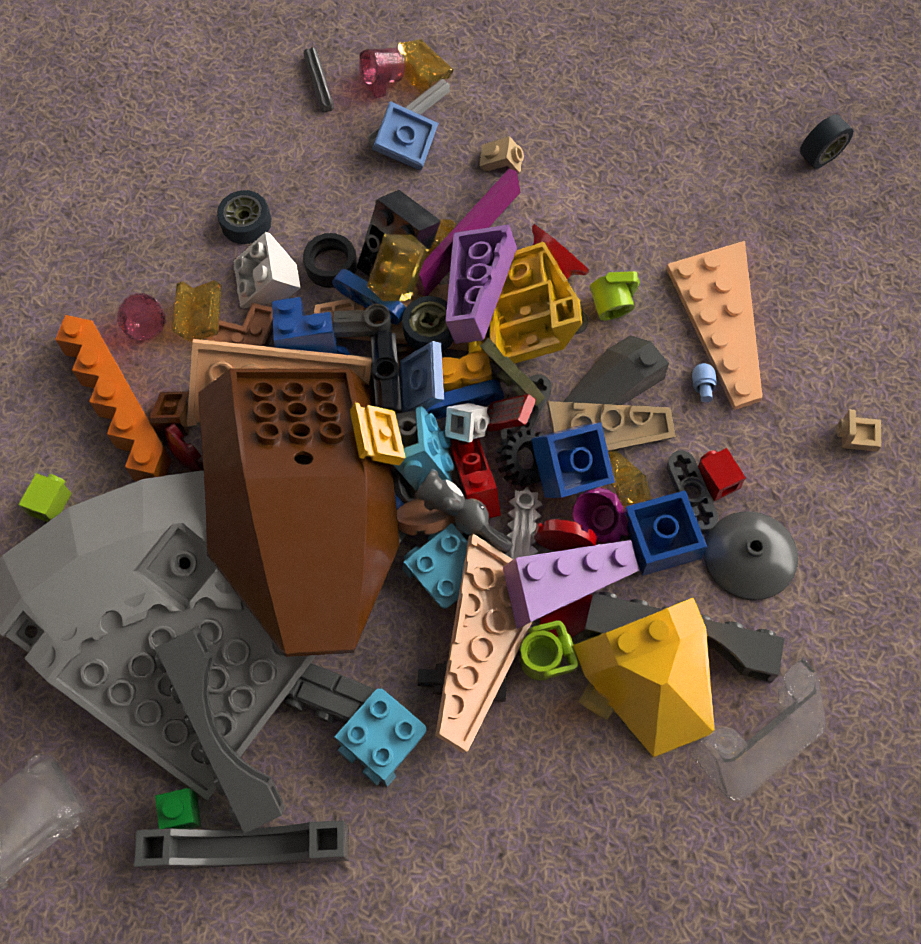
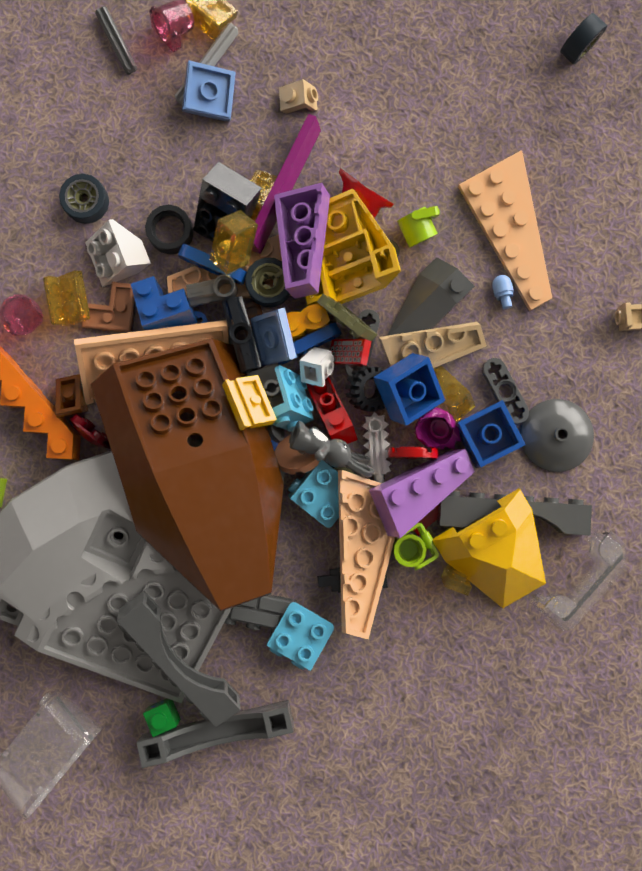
camera: 15 degrees left, 20 degrees up
(720, 473) = (526, 373): red brick -> none

